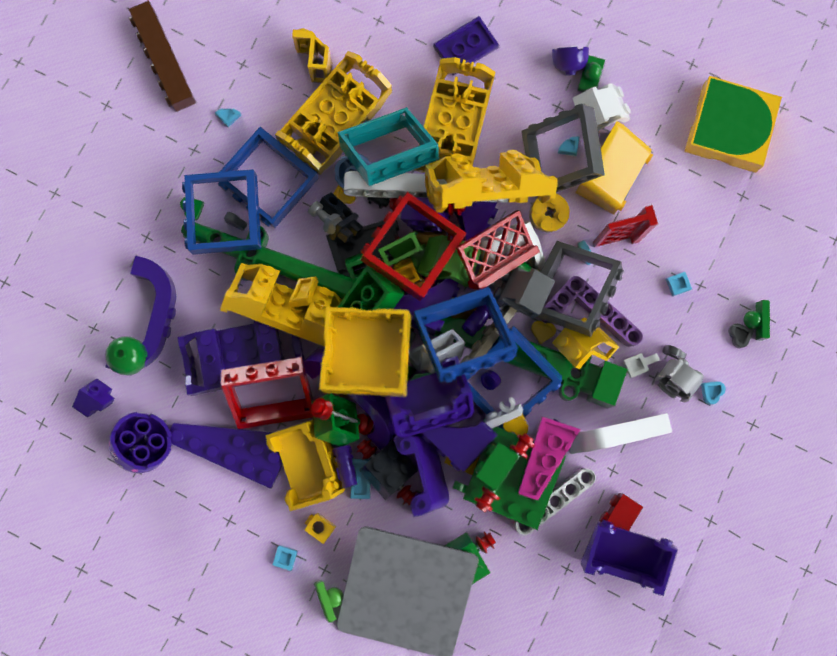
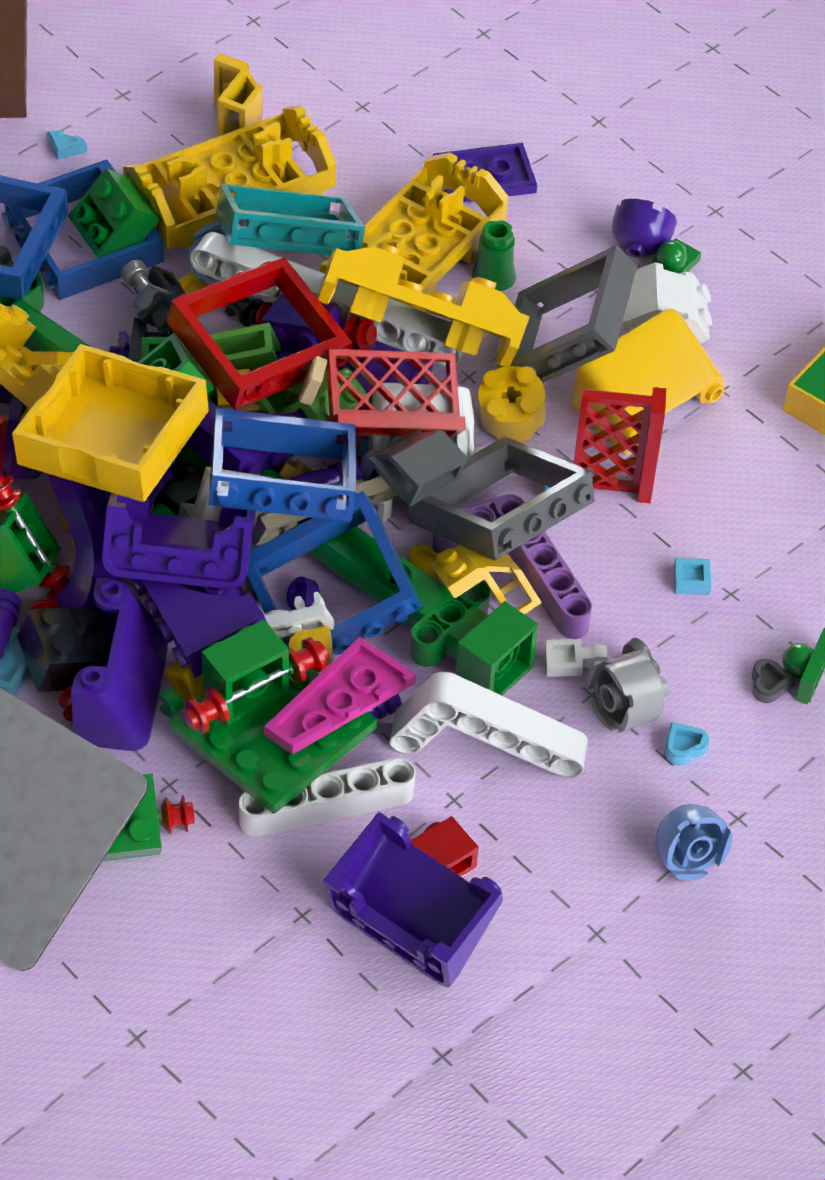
camera: 20 degrees right, 30 degrees down
(284, 170) = (113, 214): none -> green slope
(326, 254) = (124, 345): none -> dark purple plant
(455, 266) = (313, 380): none -> tan tile
(499, 114) = (496, 255): none -> green plant
(740, 455) = (692, 841): none -> medium blue cylinder

